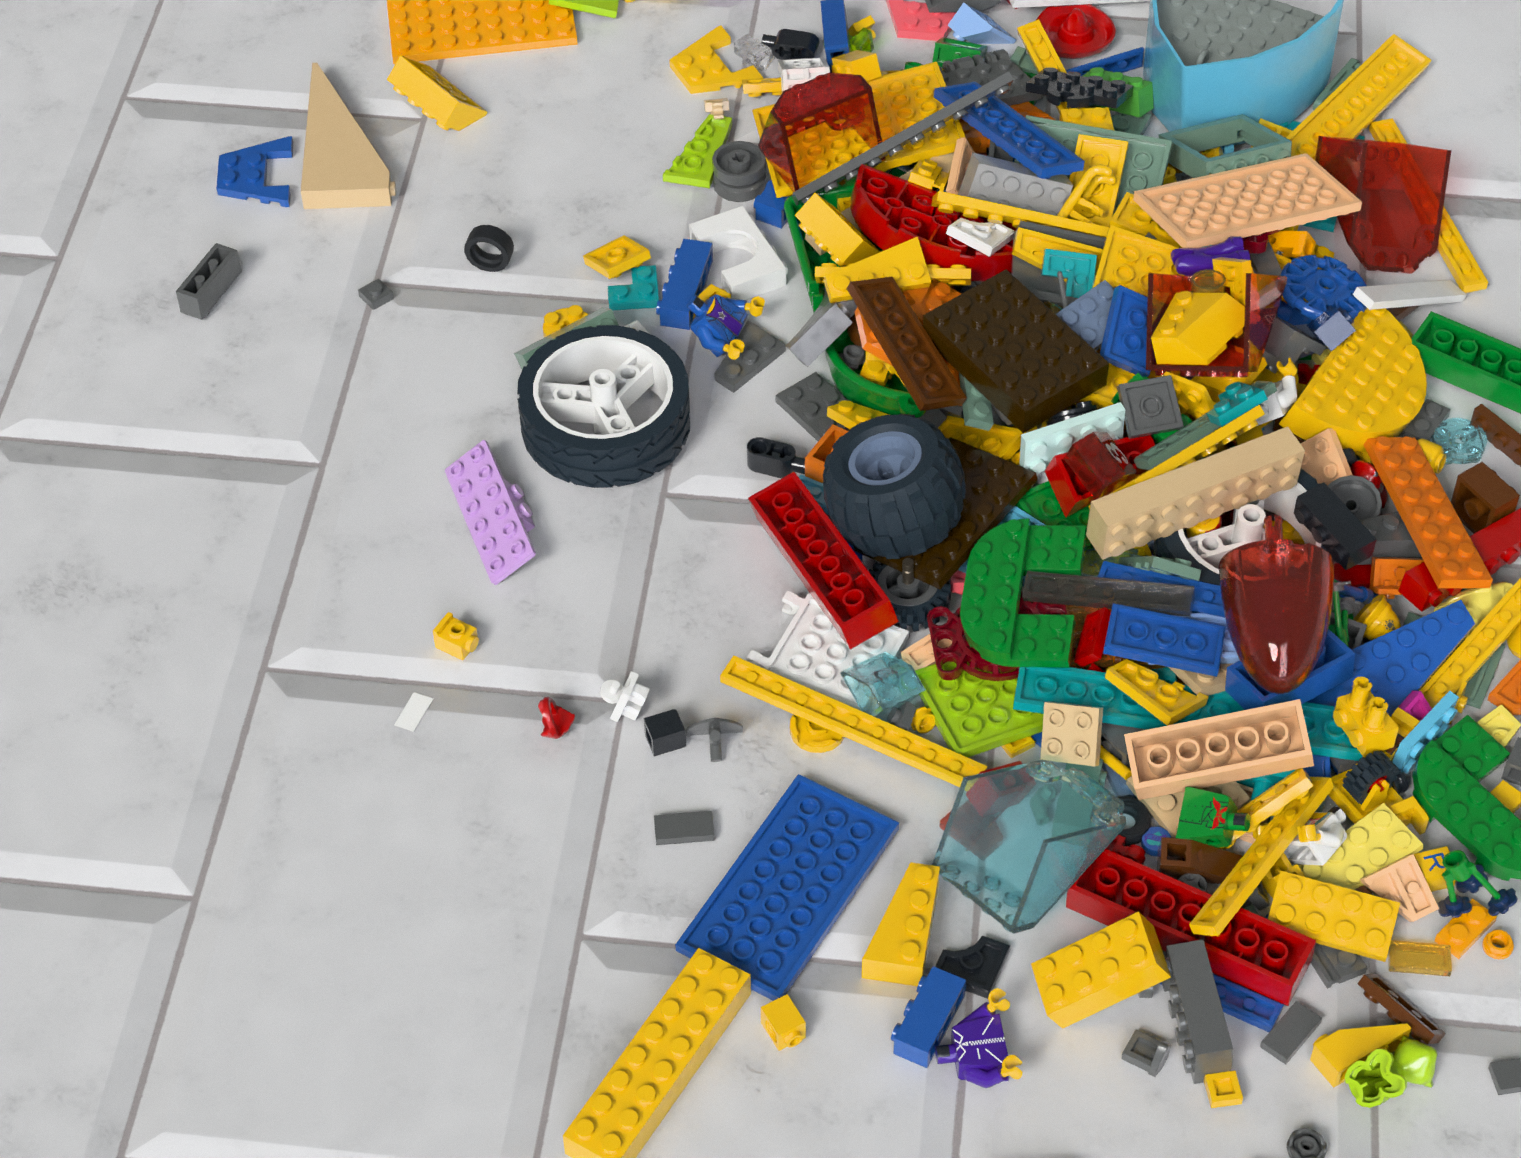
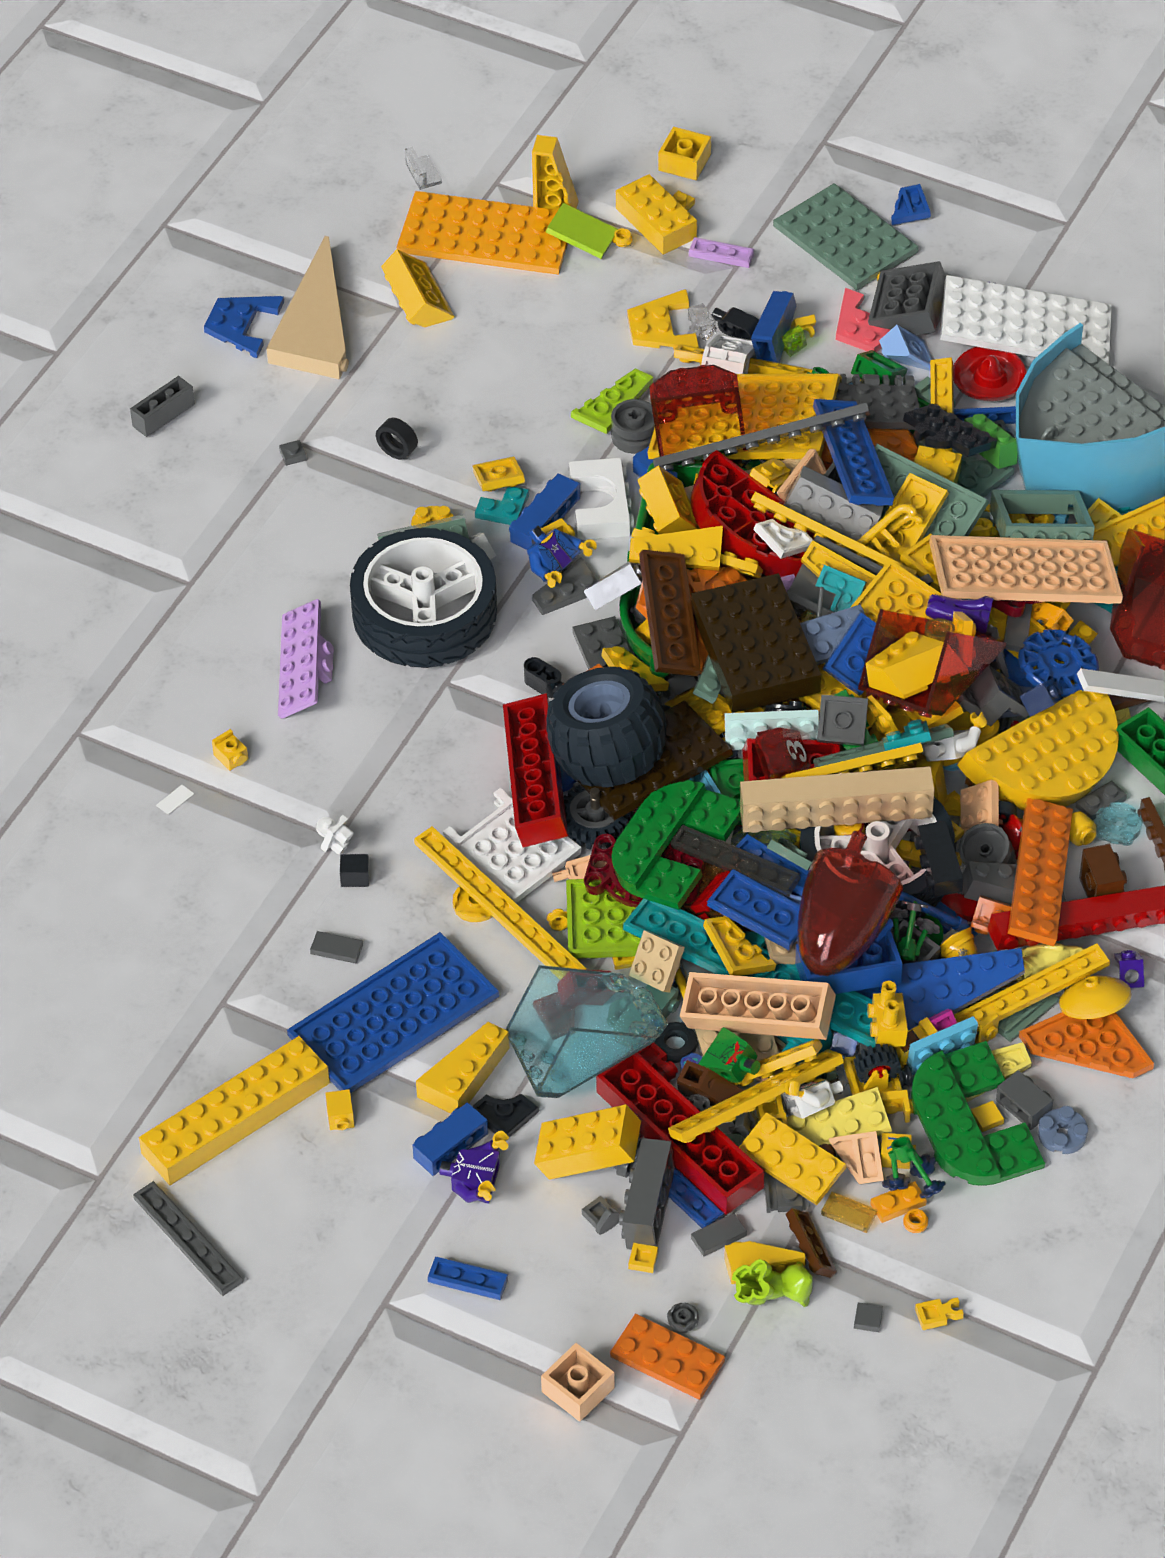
camera: 20 degrees right, 0 degrees up
(555, 719) = (276, 835): red piece -> none
(714, 728) = (389, 880): dark grey shield -> none
(716, 107) = (645, 363): tan plate -> none
(857, 63) = (770, 360): yellow brick -> none
(882, 684) = (536, 882): clear light blue slope -> none
(902, 716) = (540, 912): dark grey plate -> none

